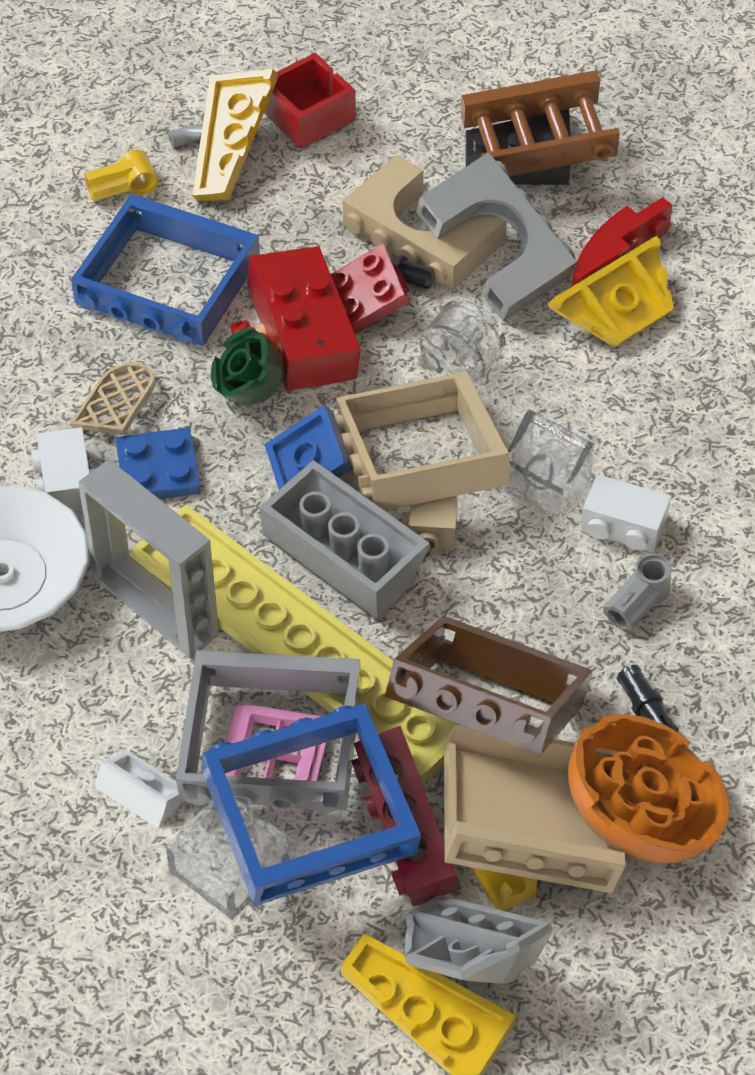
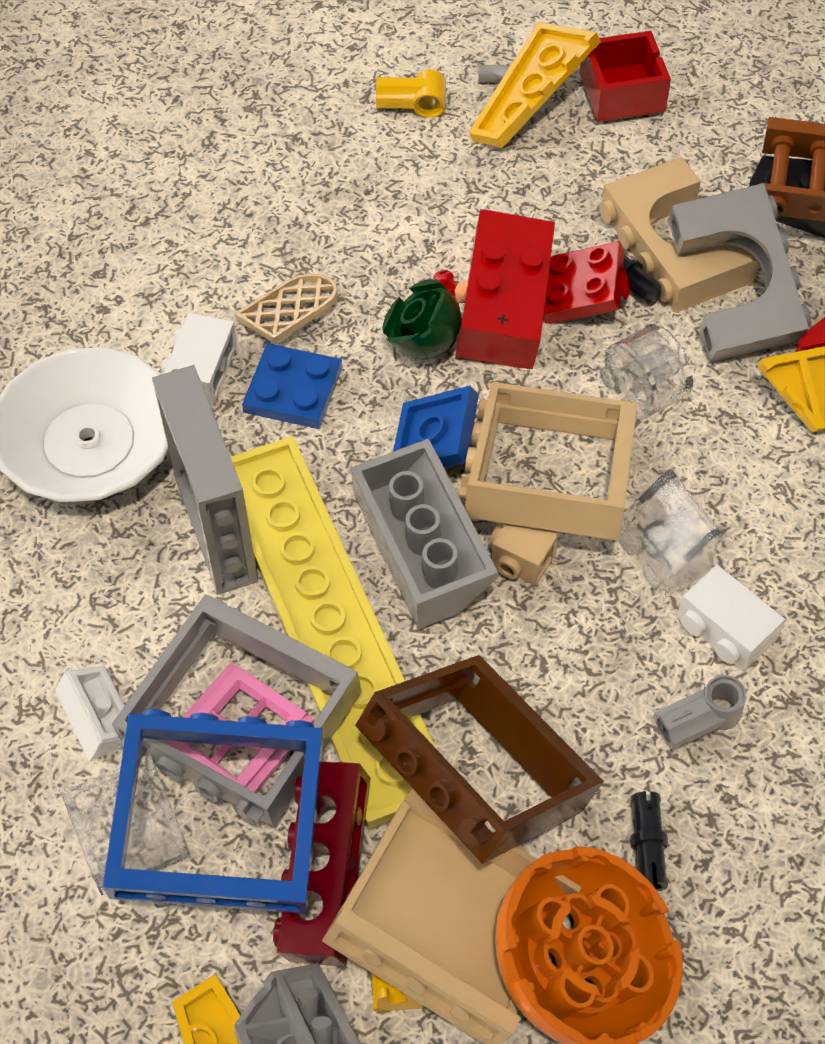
camera: 25 degrees right, 5 degrees up
(178, 227) = (435, 155): blue window -> none

